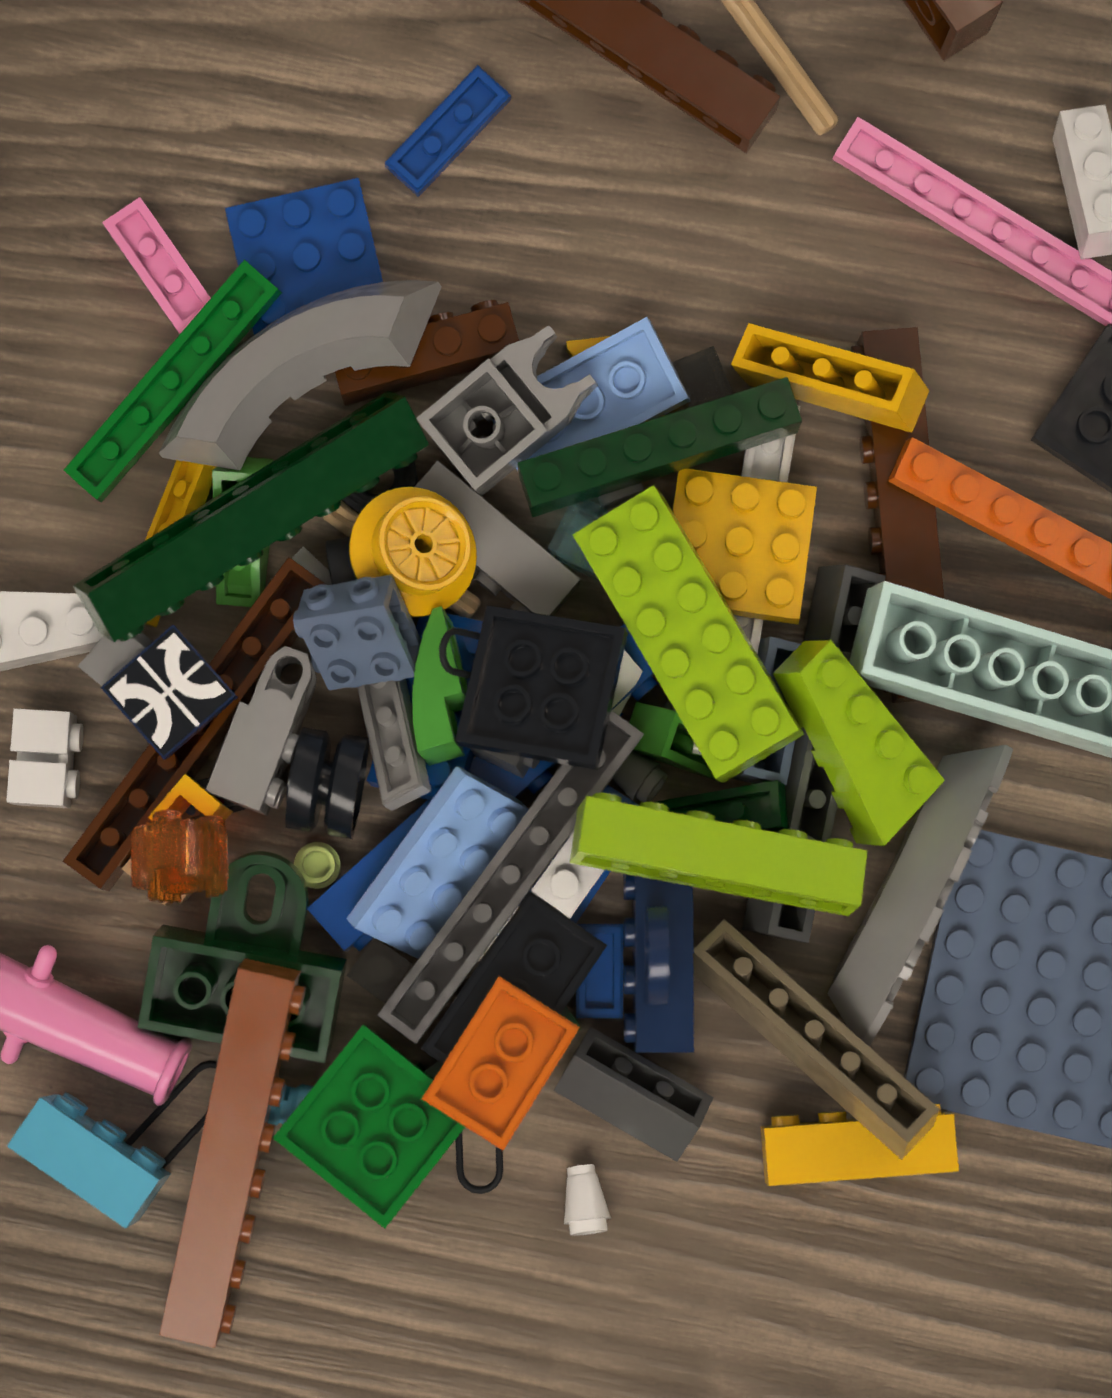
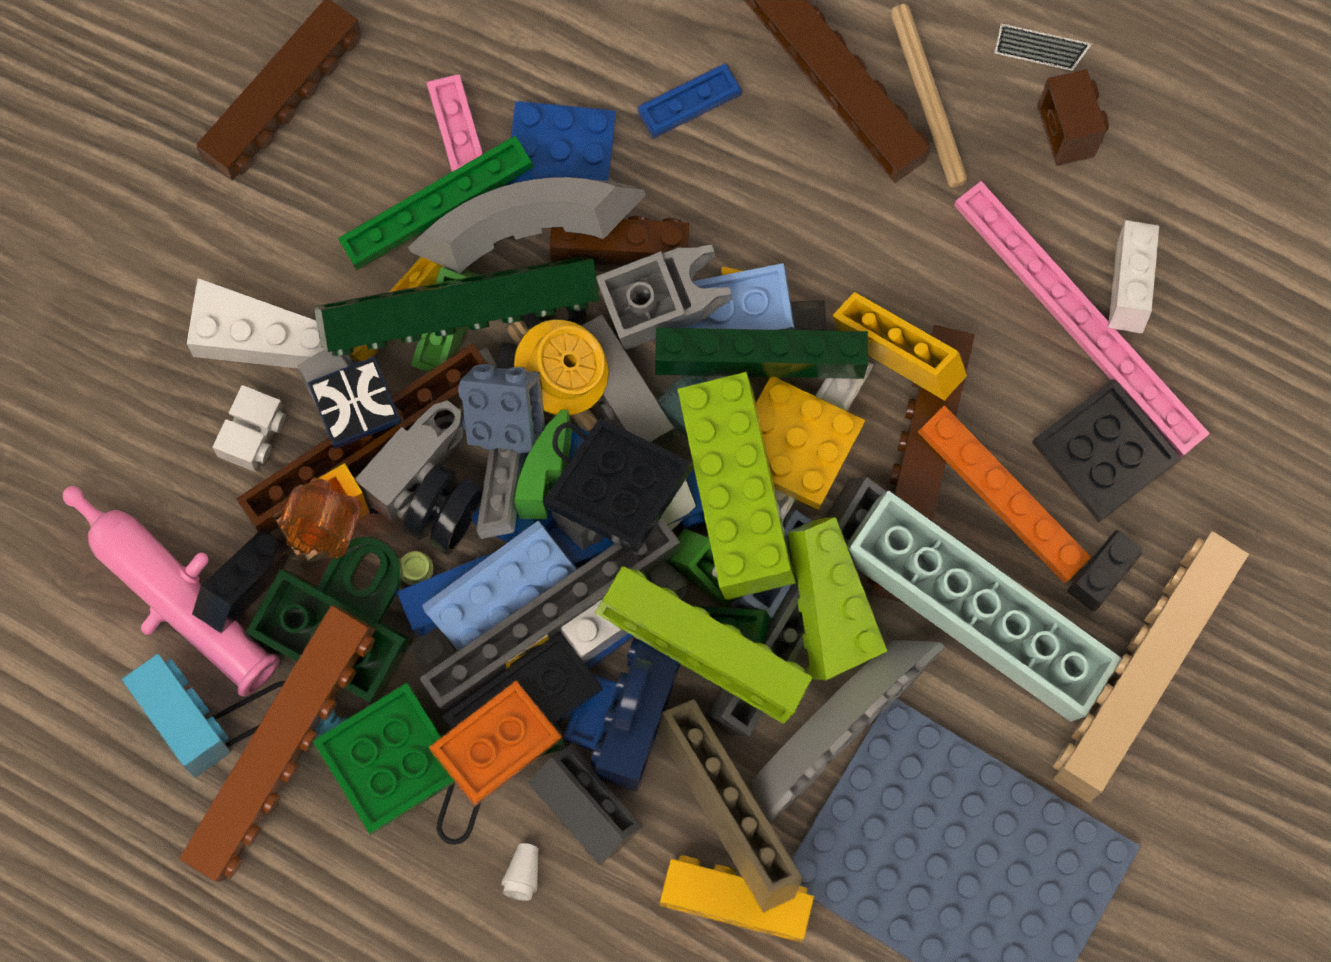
camera: 20 degrees right, 10 degrees down
(107, 964) = (240, 581): none -> black brick

